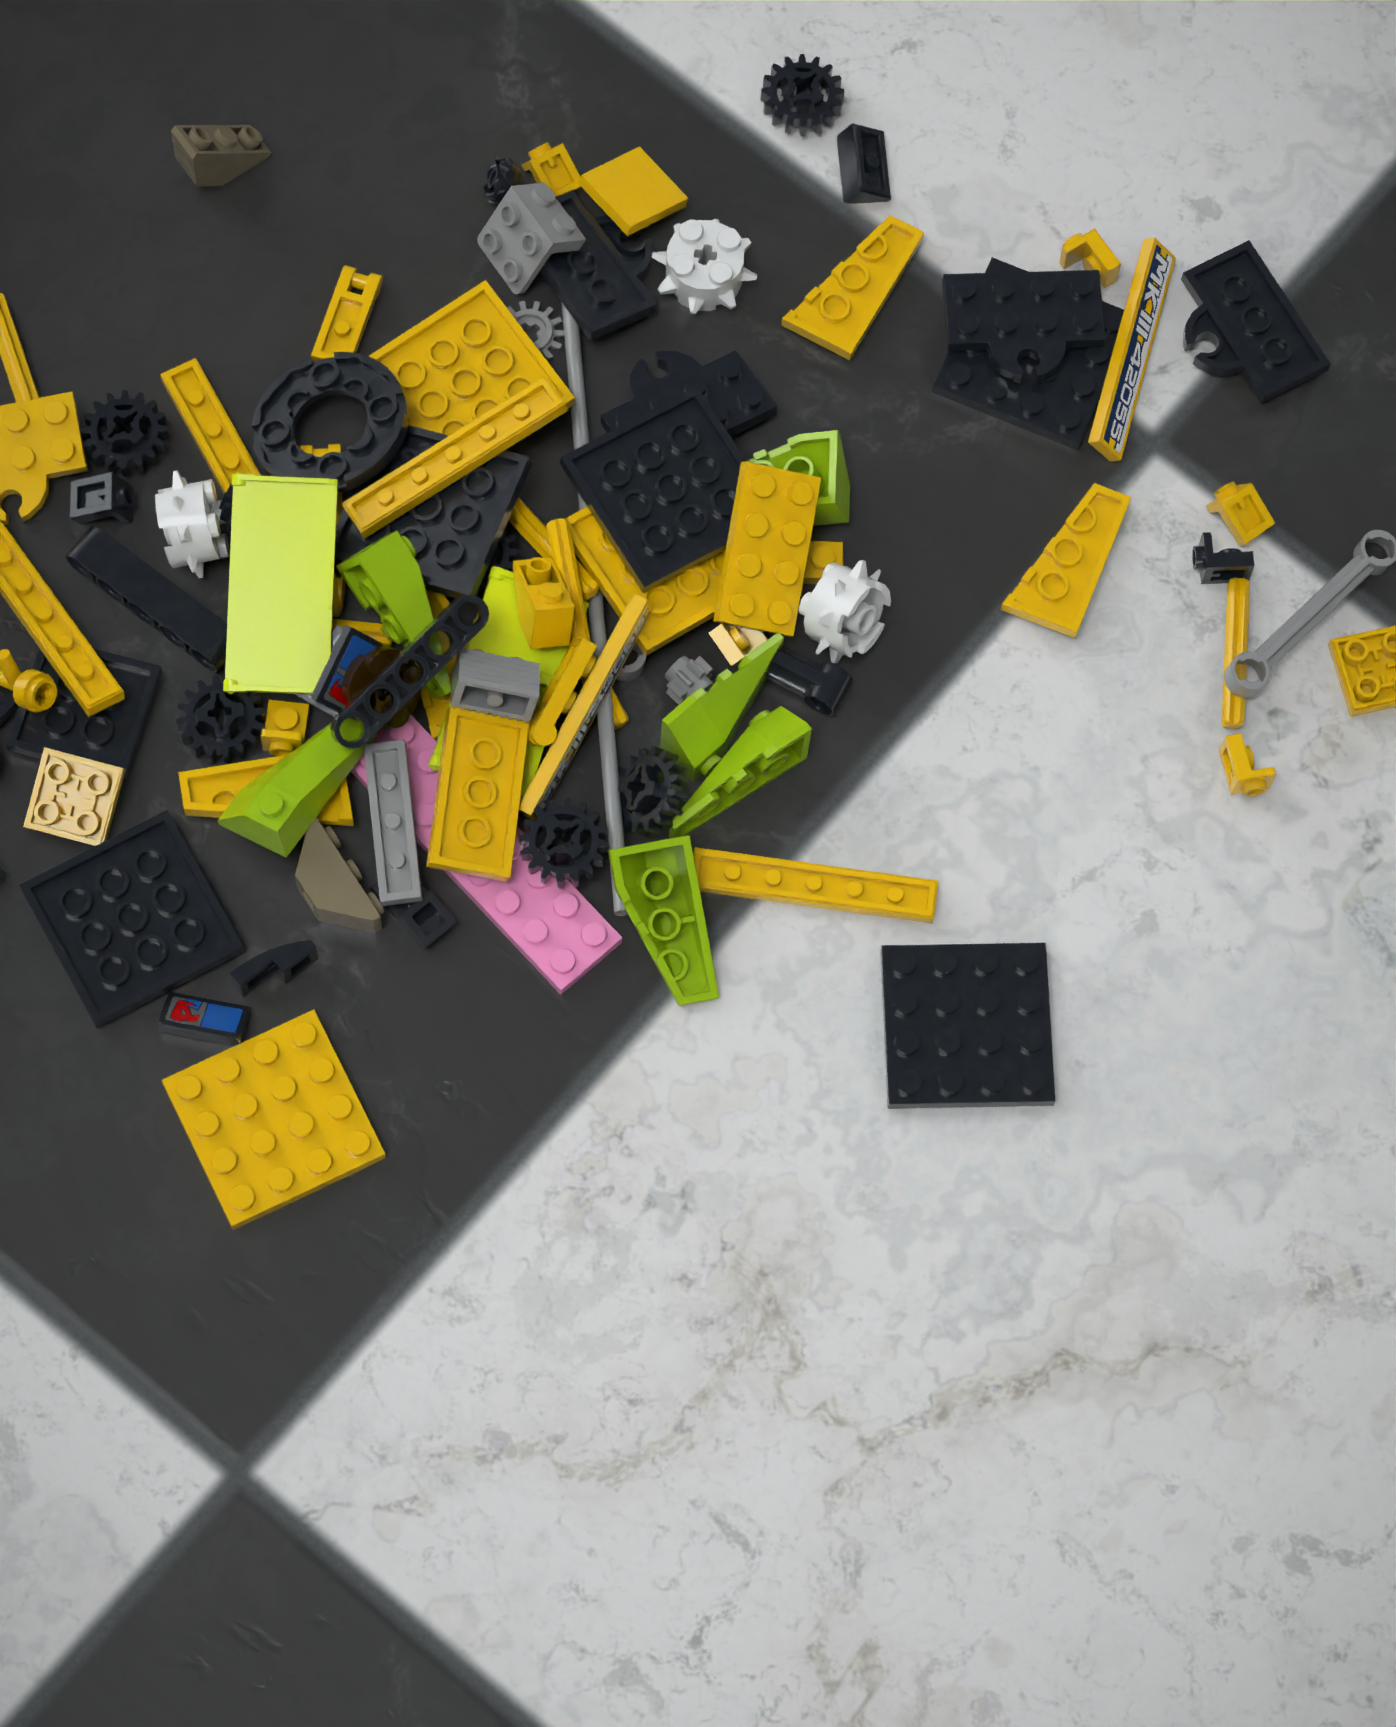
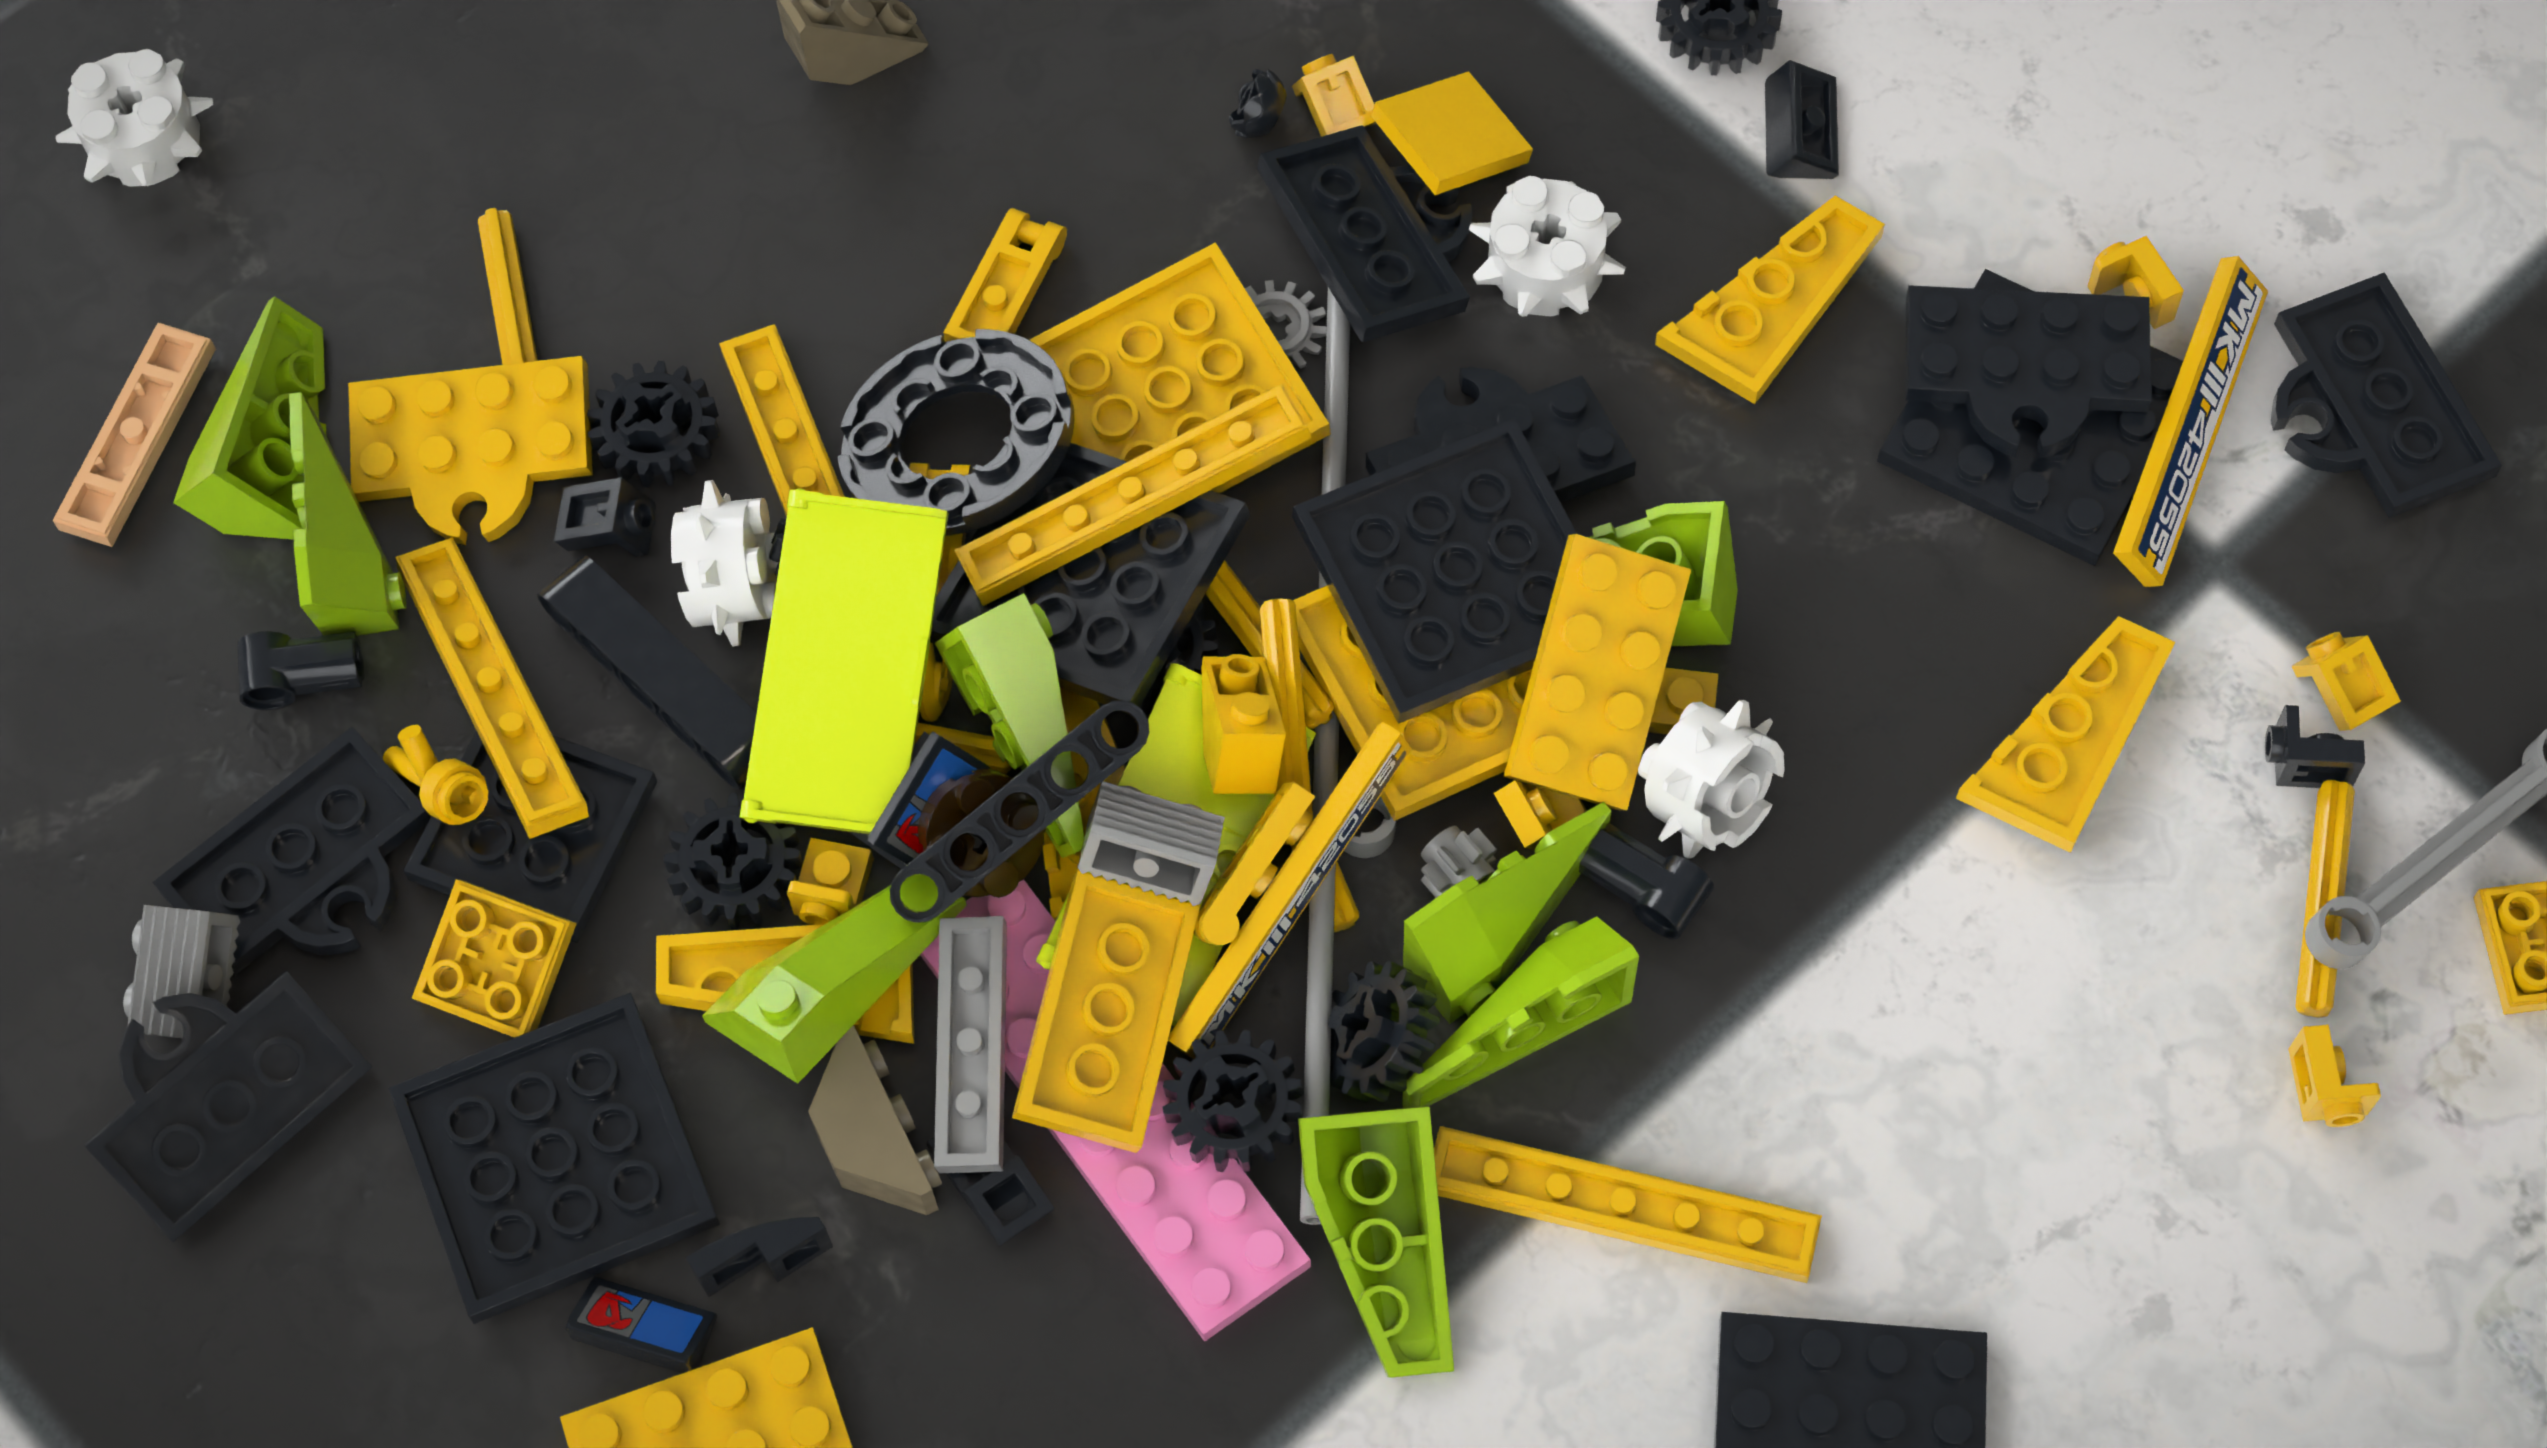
camera: 15 degrees right, 5 degrees down
(526, 232) = (1282, 177): light grey bracket -> none

